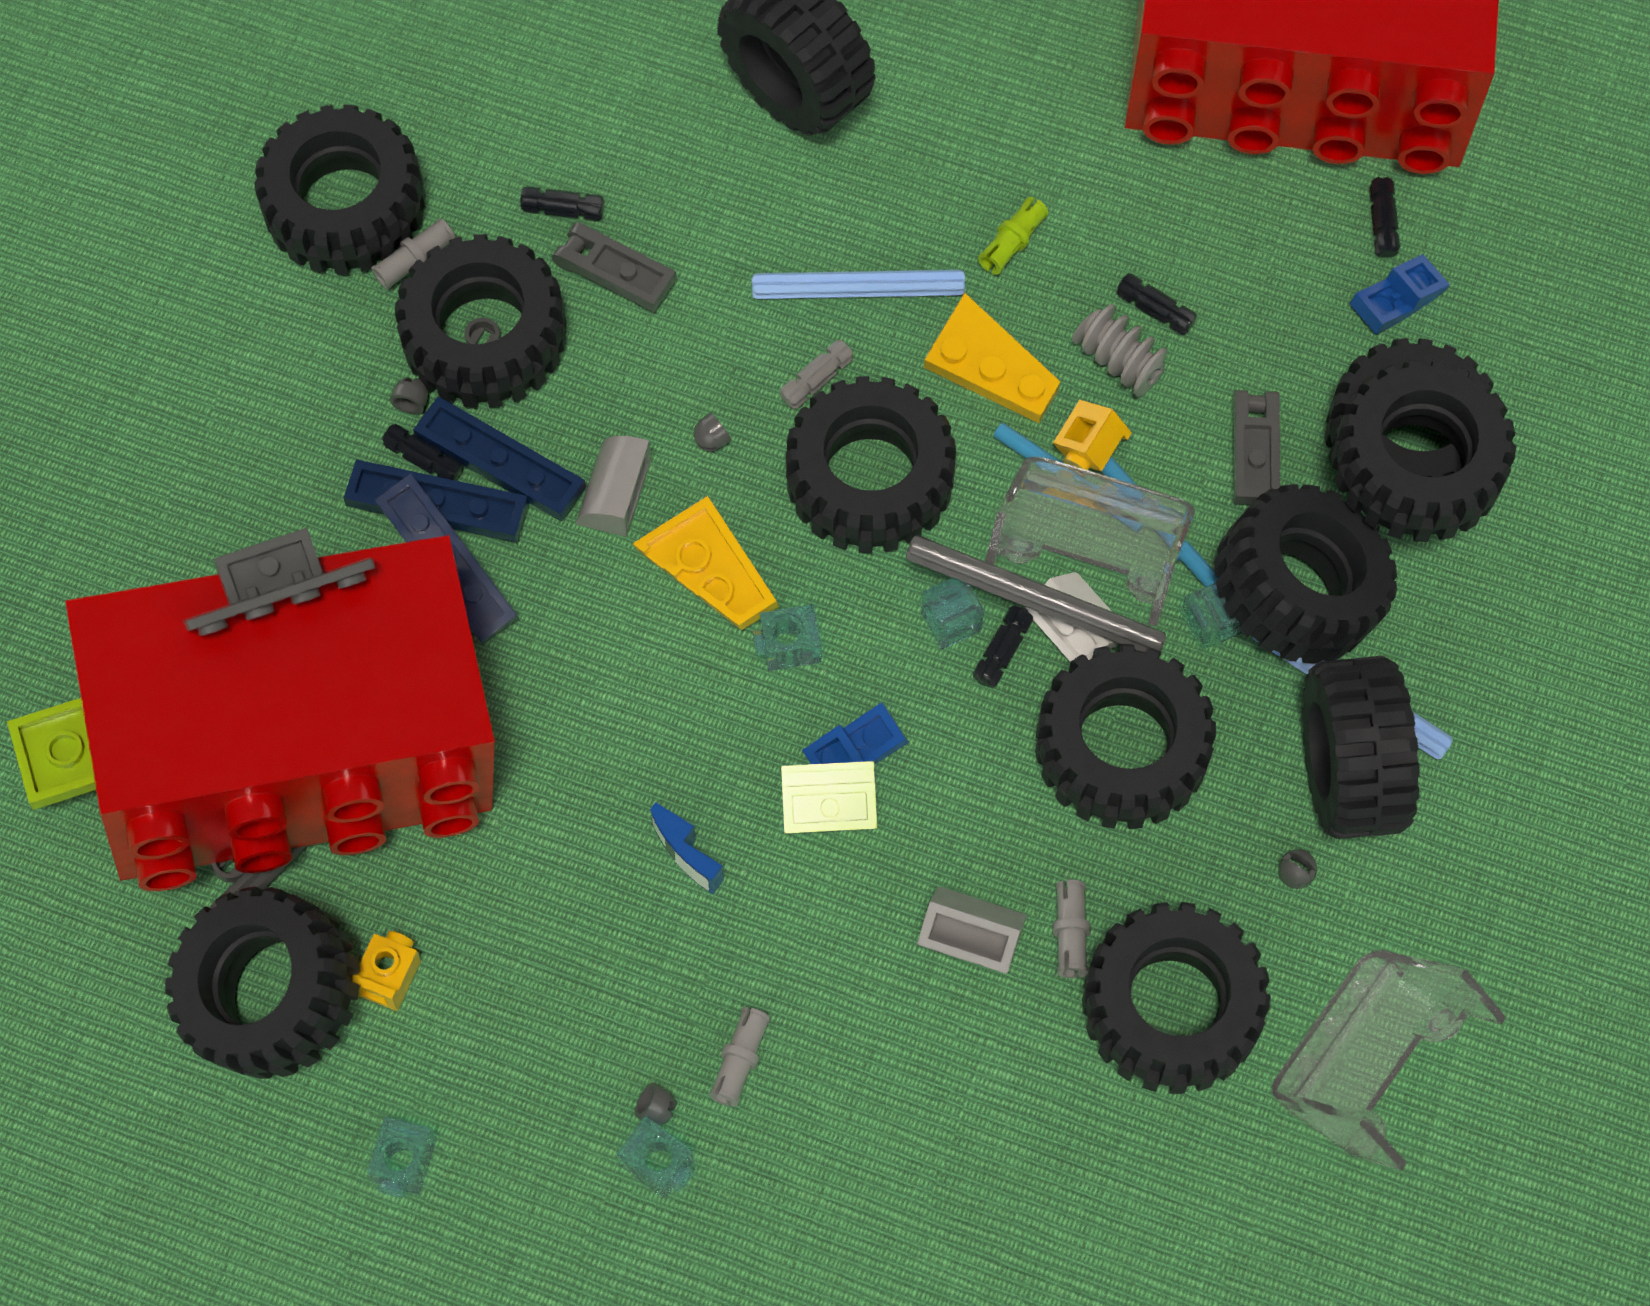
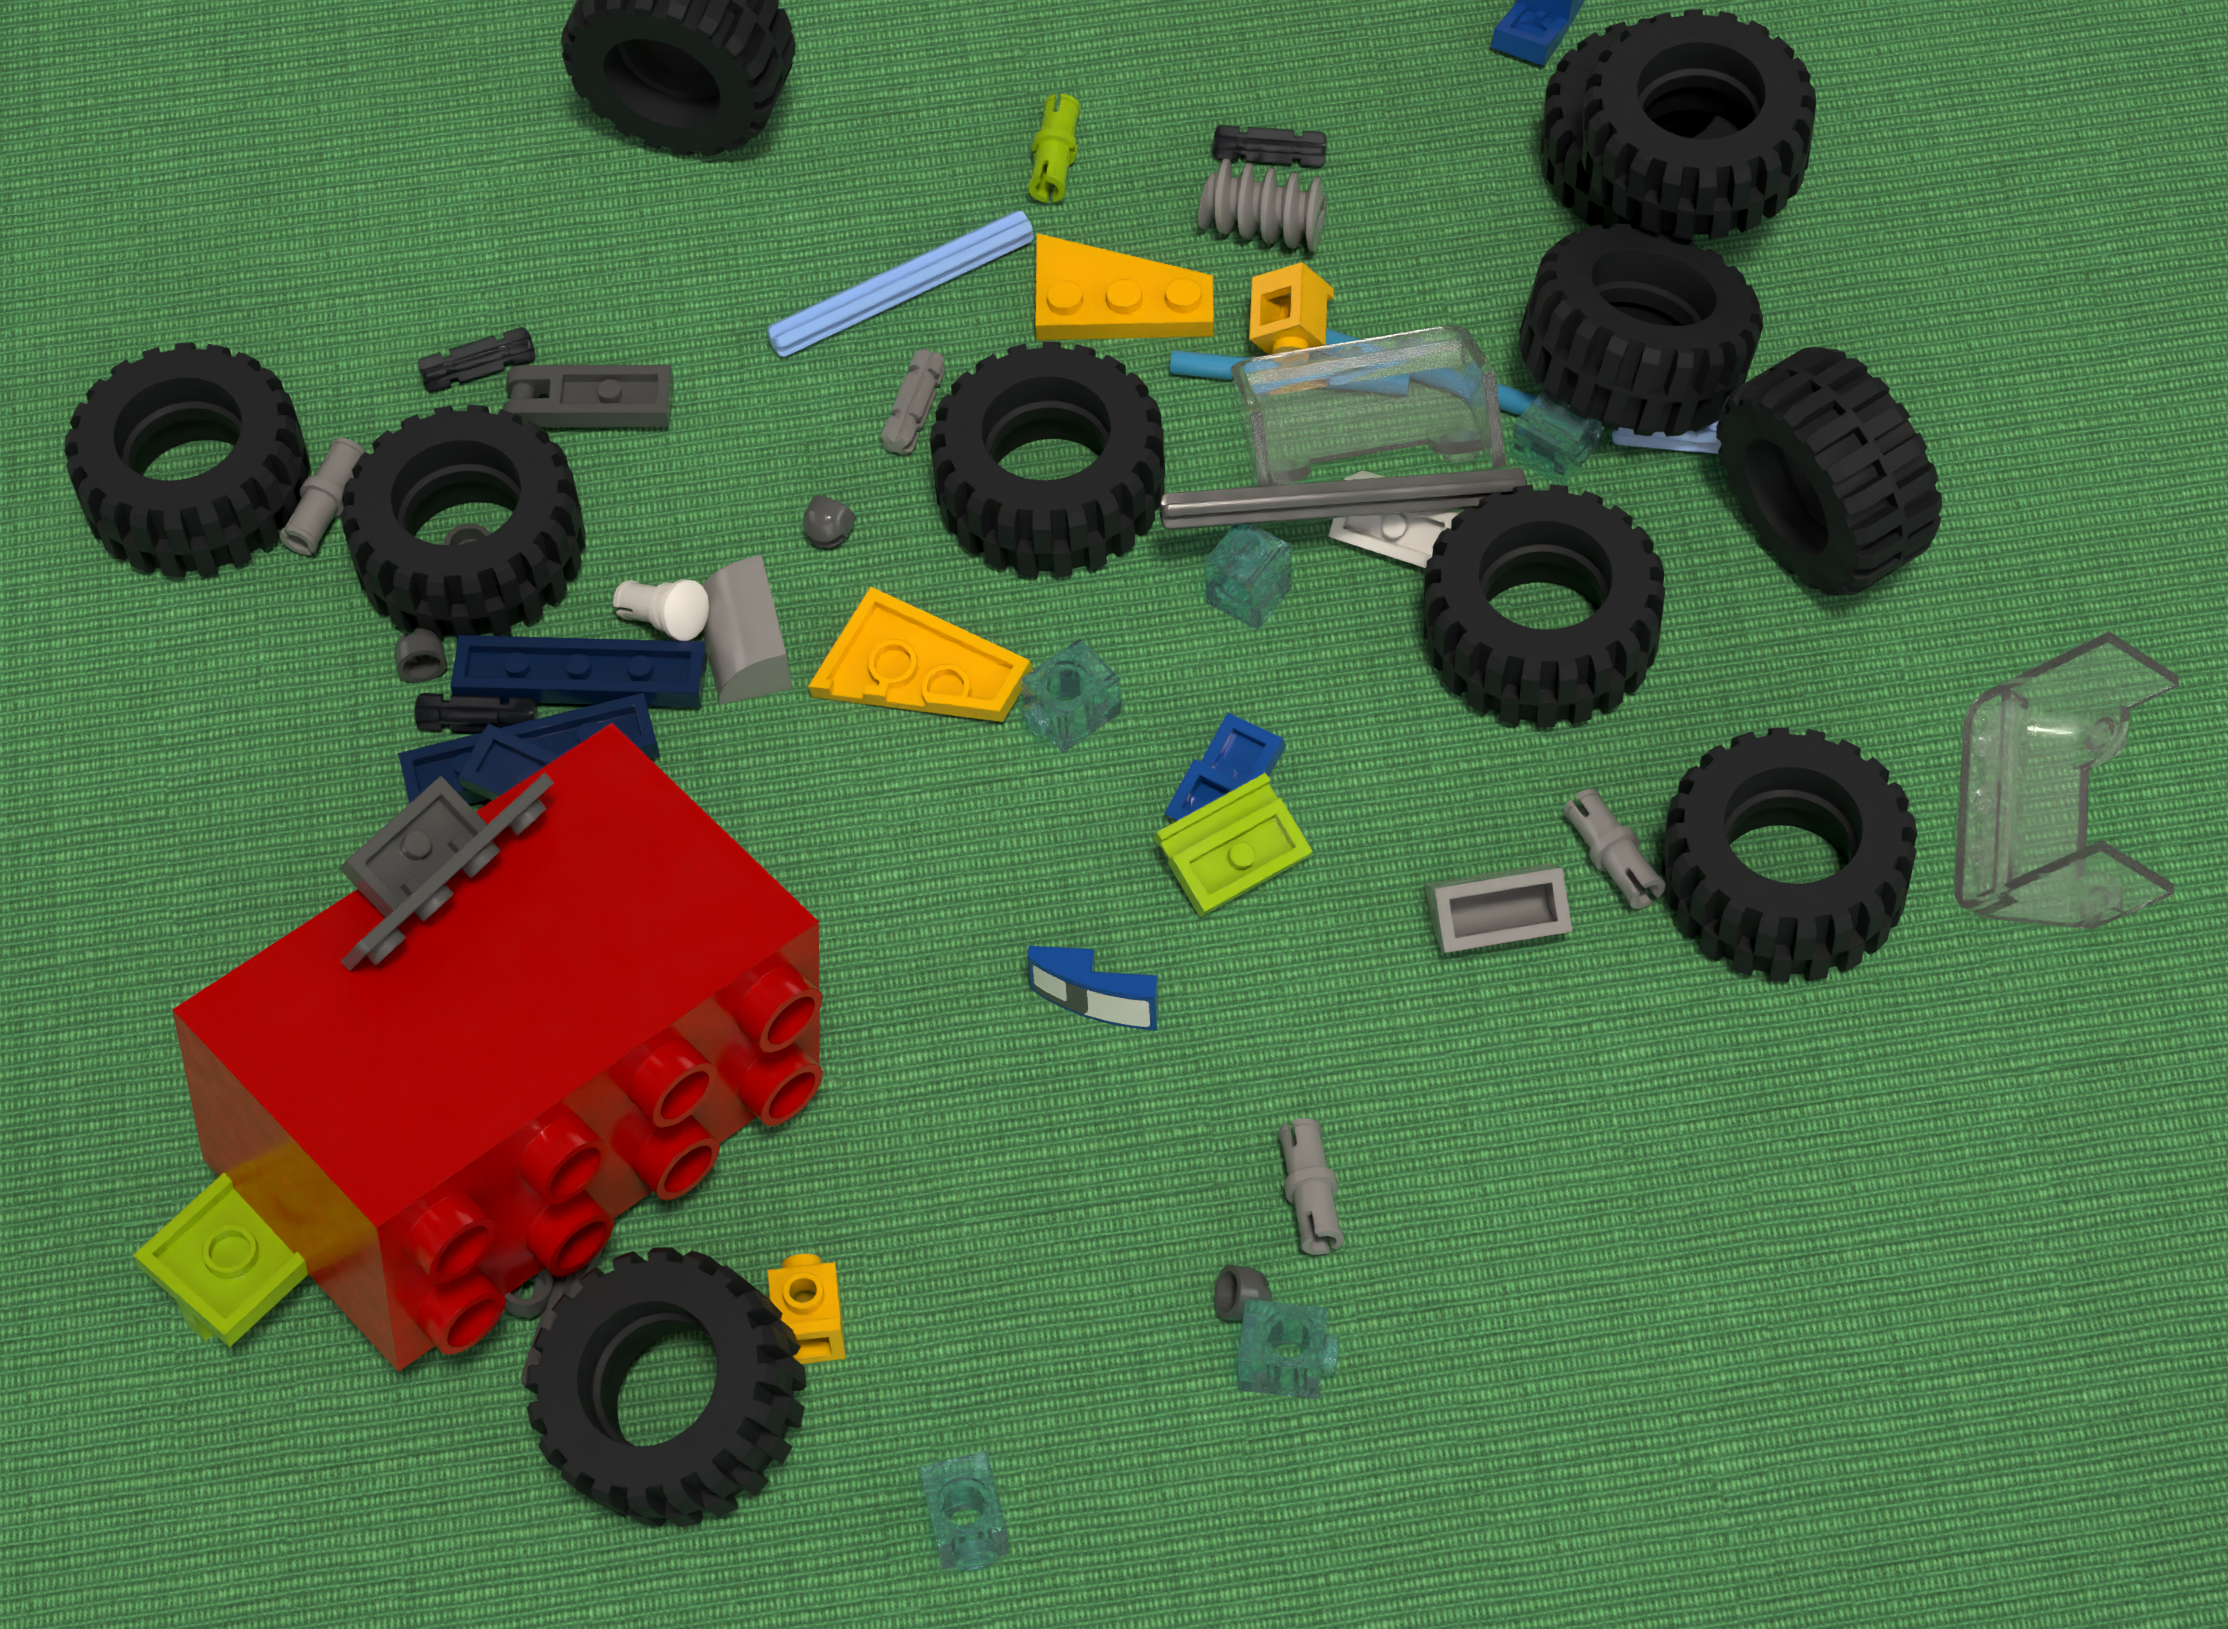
camera: 25 degrees left, 10 degrees down
(576, 447) = (670, 607): none -> white pin
(1003, 646) = (1331, 588): black axle -> none
(1255, 445) = (1484, 238): dark grey plate -> none
(1294, 875) = (1829, 659): dark grey hinge -> none

